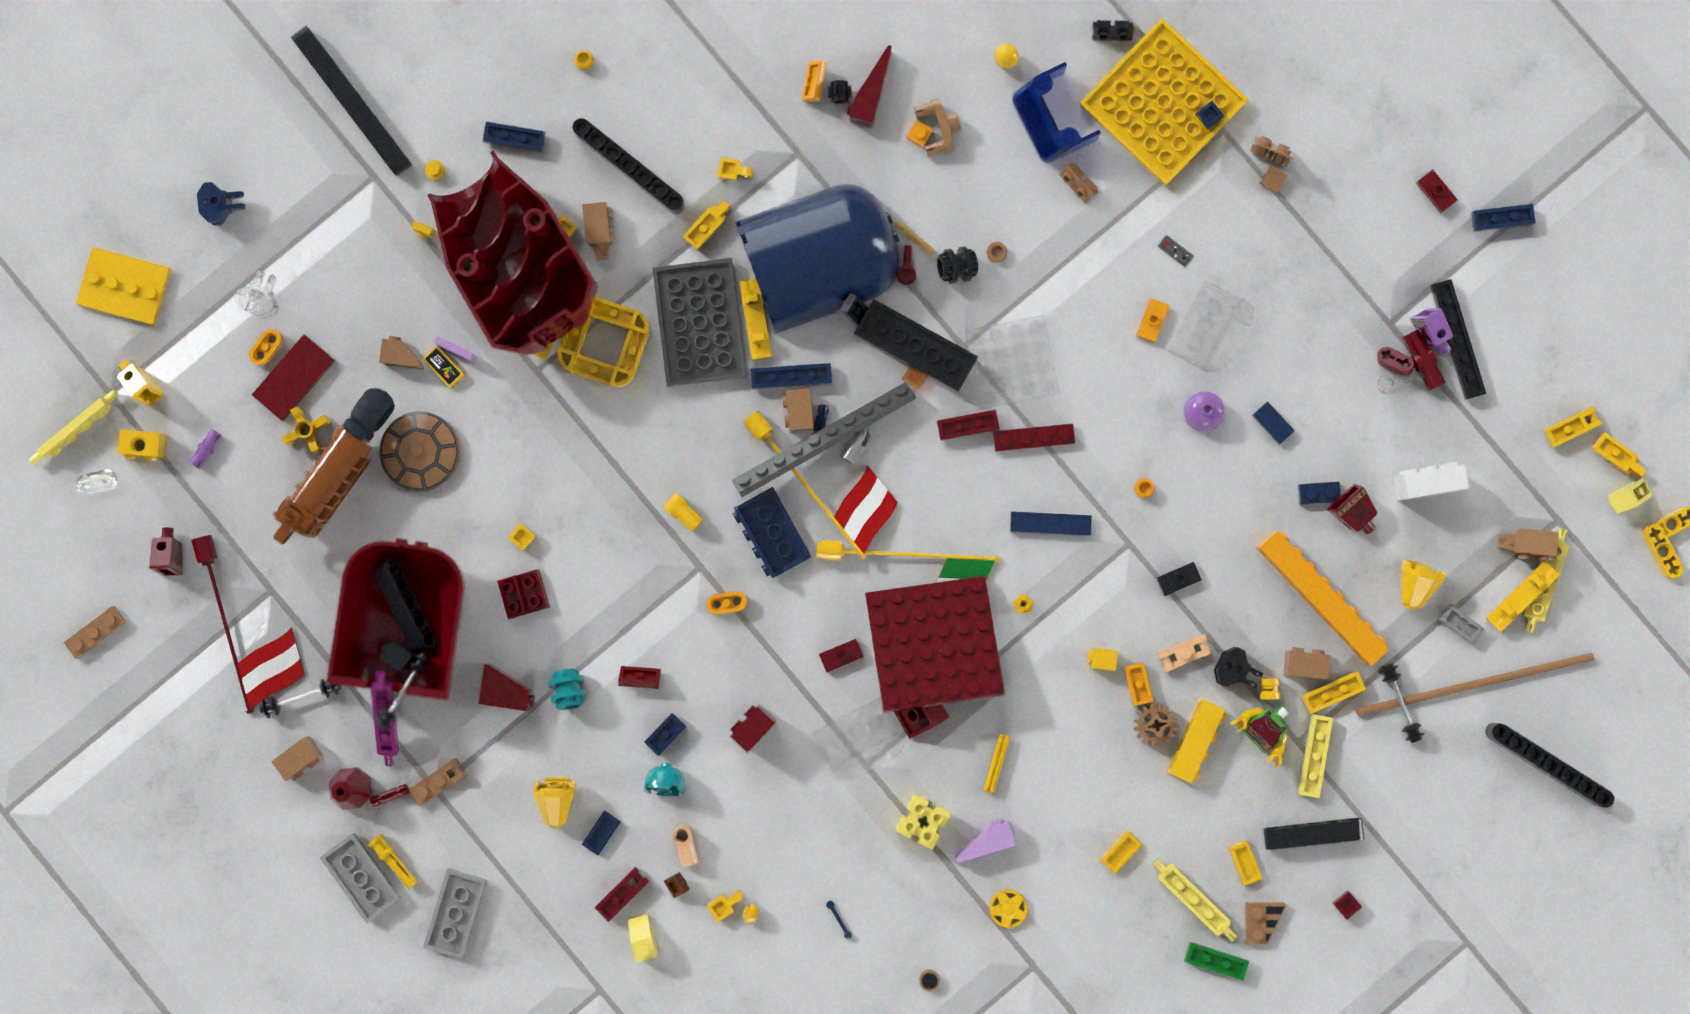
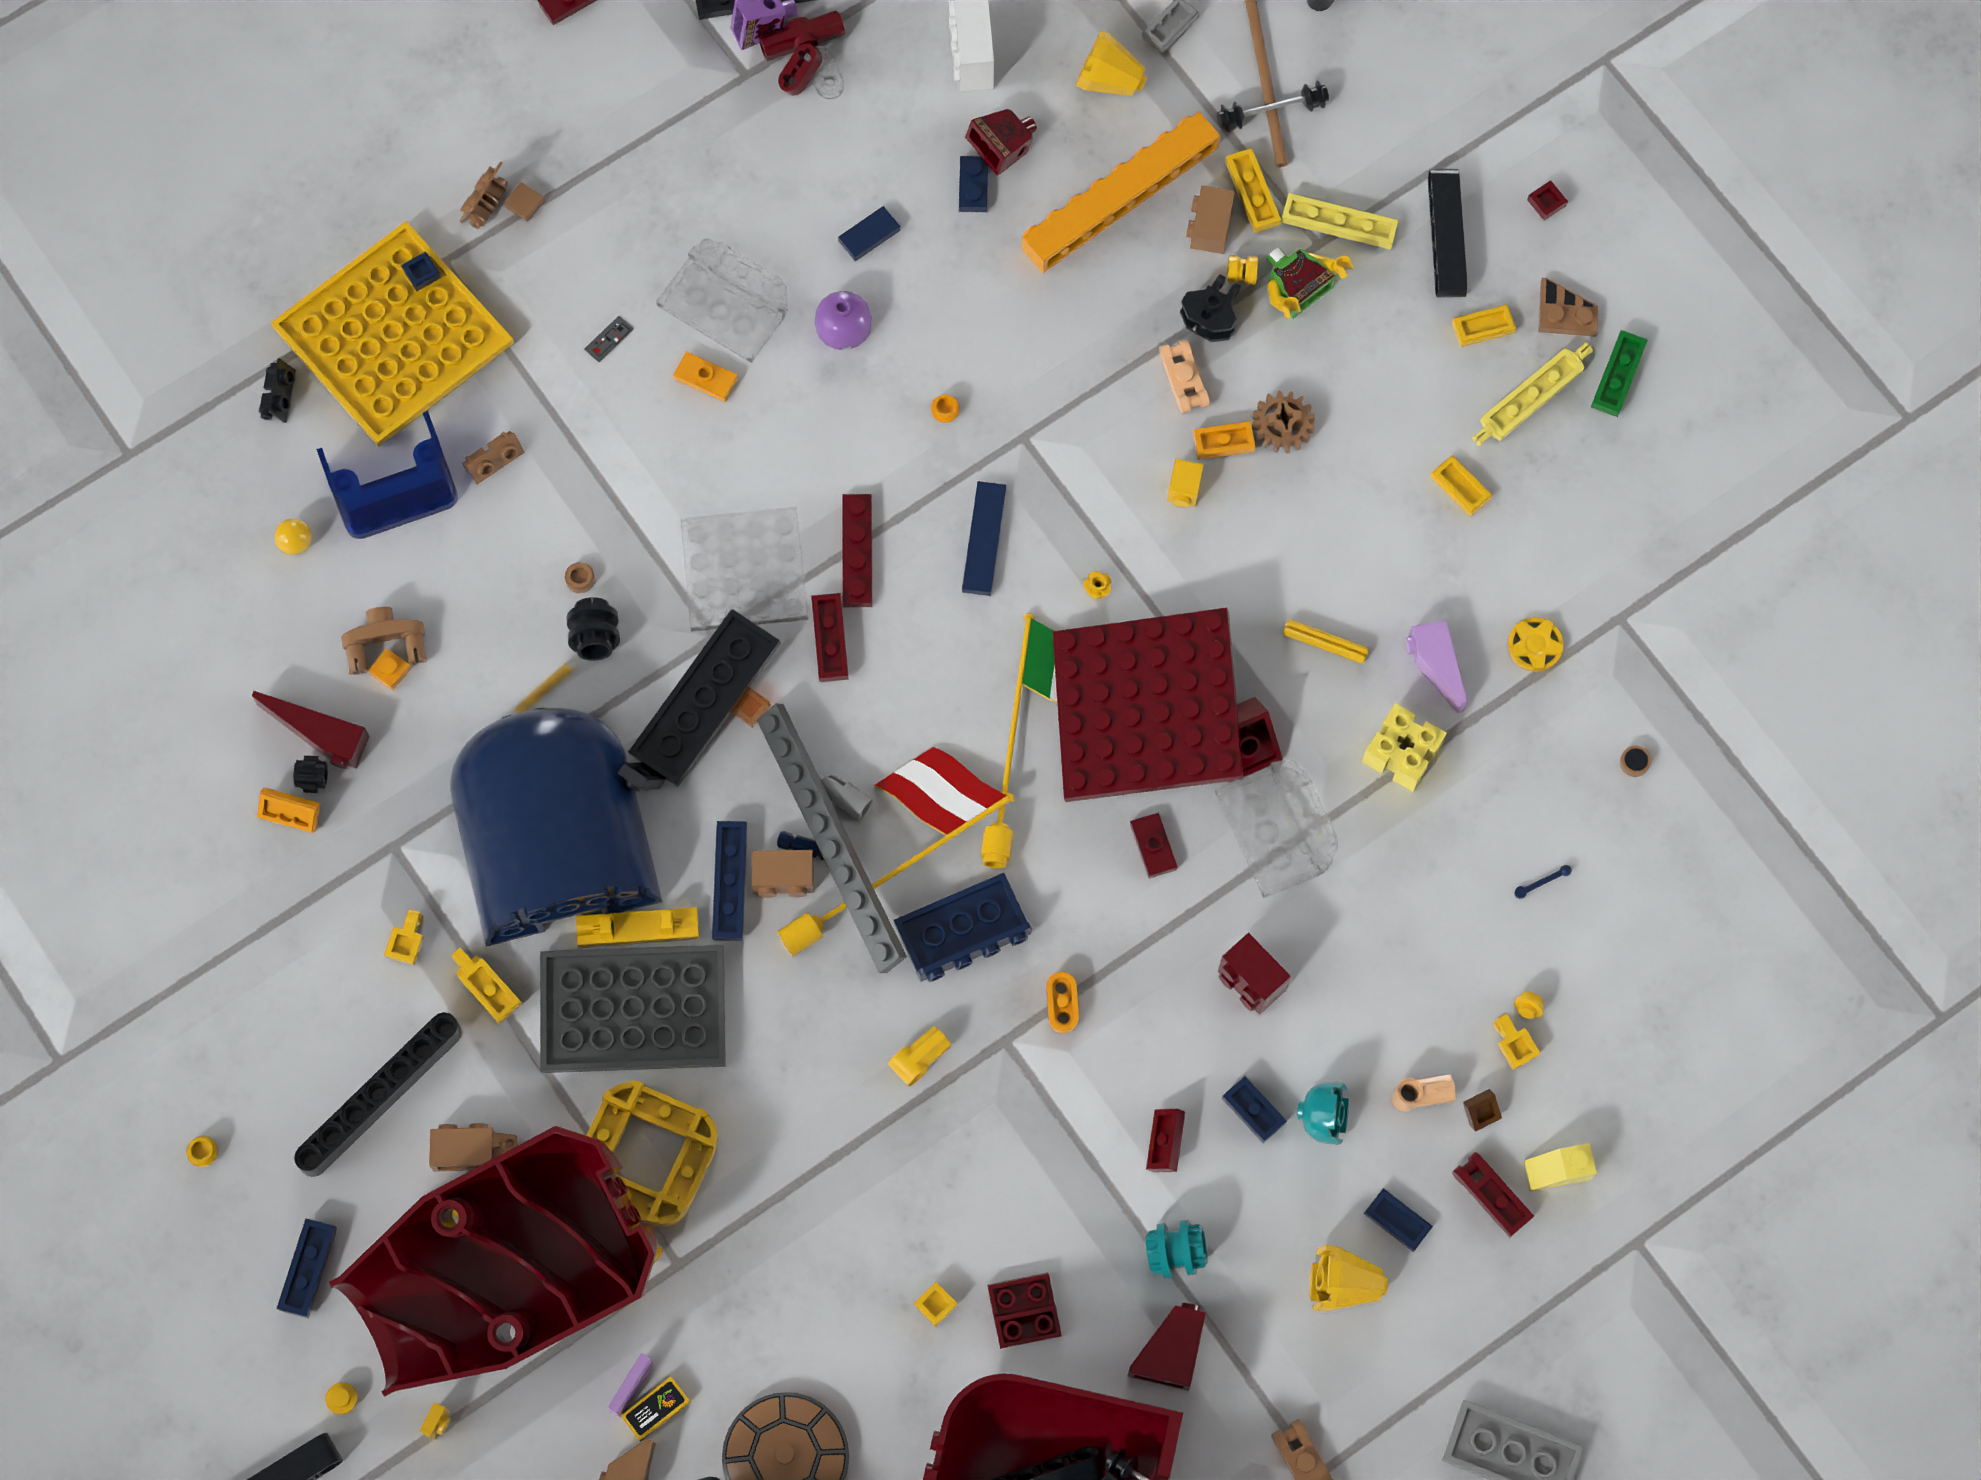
camera: 90 degrees left, 15 degrees down
(906, 274) = (595, 703): dark red plate -> none
(1178, 578) = (1078, 375): black plate -> none
(1196, 740) = (1309, 371): yellow brick -> none

